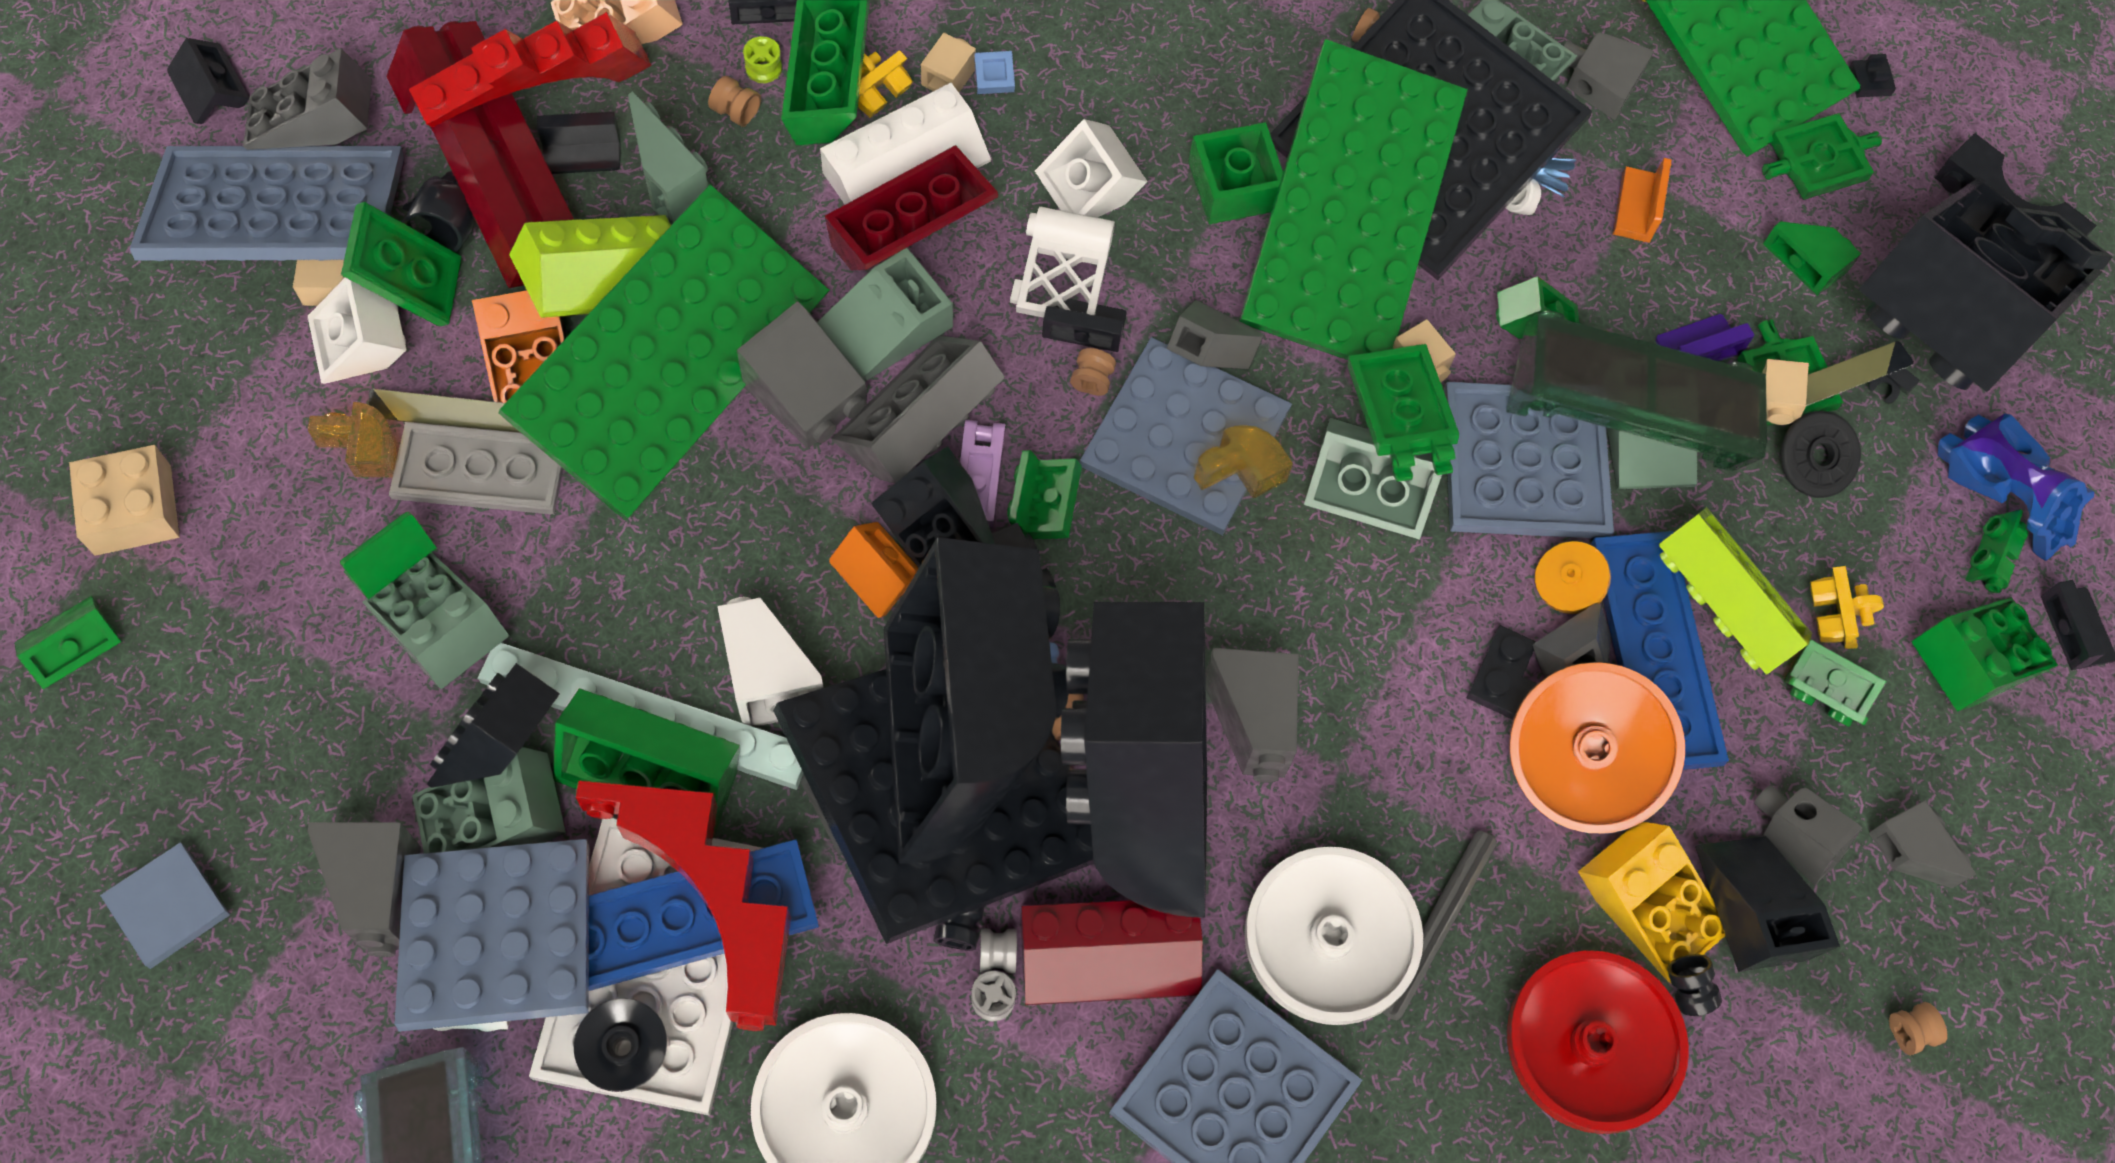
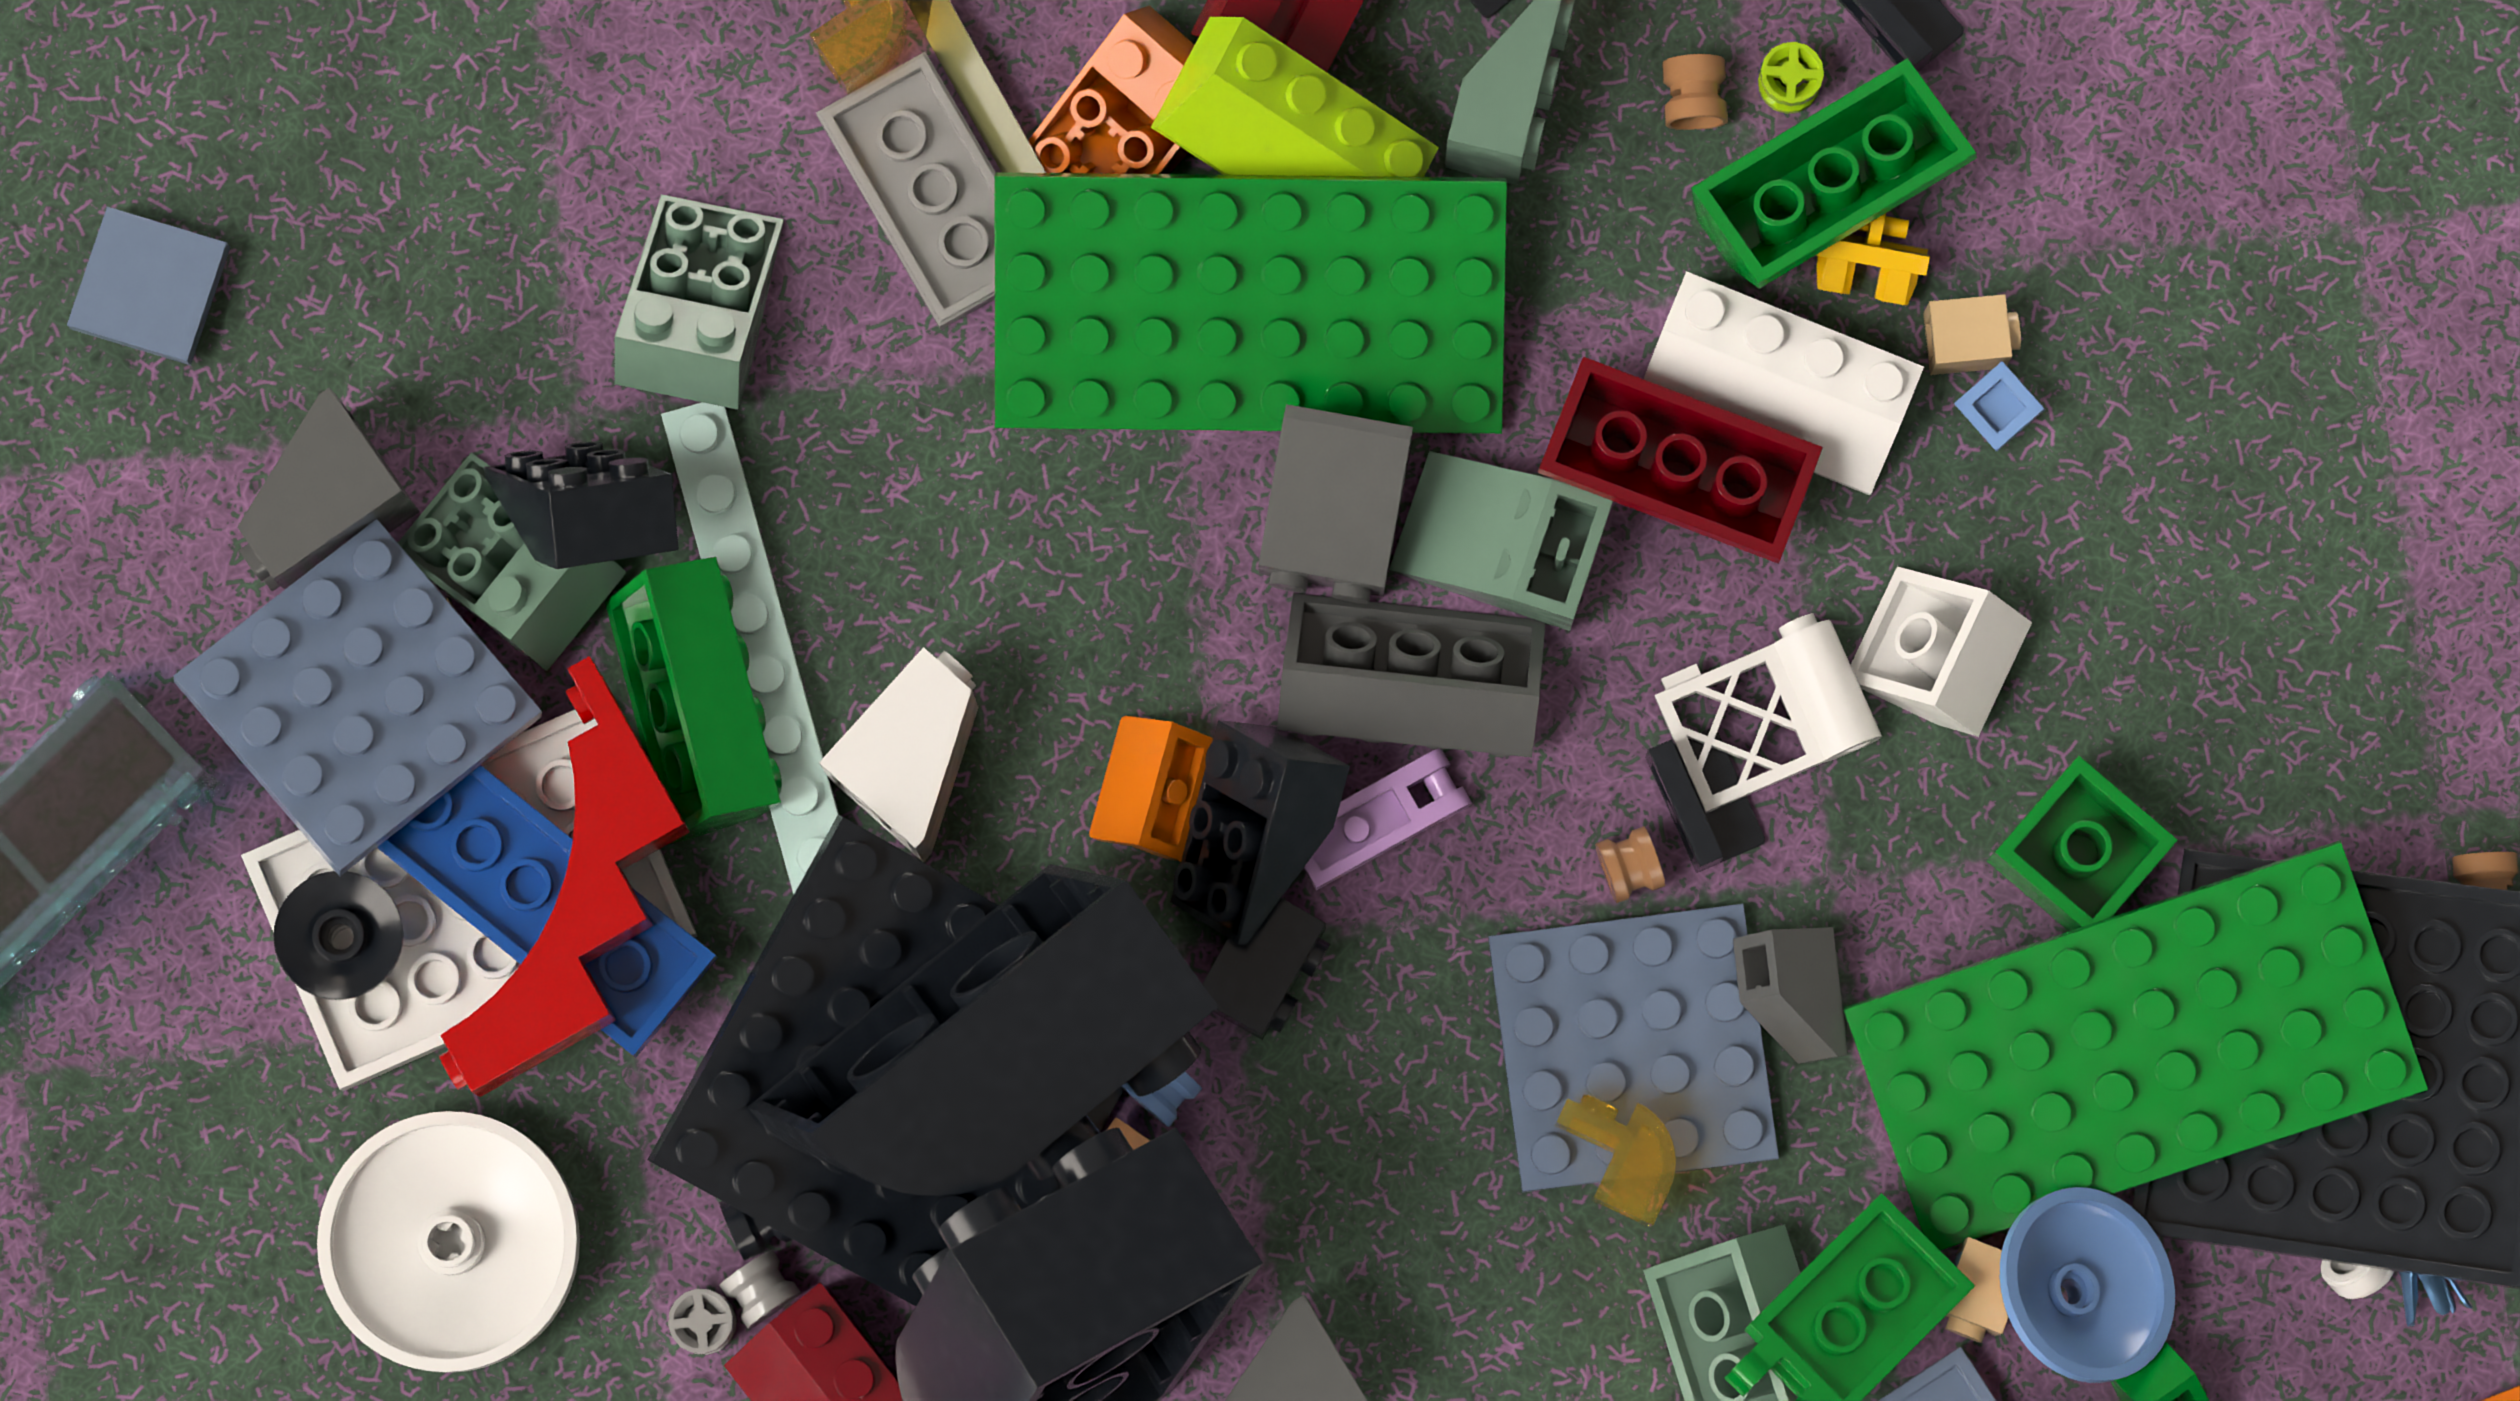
camera: 65 degrees right, 15 degrees up
(387, 555) = (730, 186): green panel -> none
(1044, 496) = (1399, 927): green bracket -> none
(1459, 298) = (2113, 1279): none -> medium blue dish

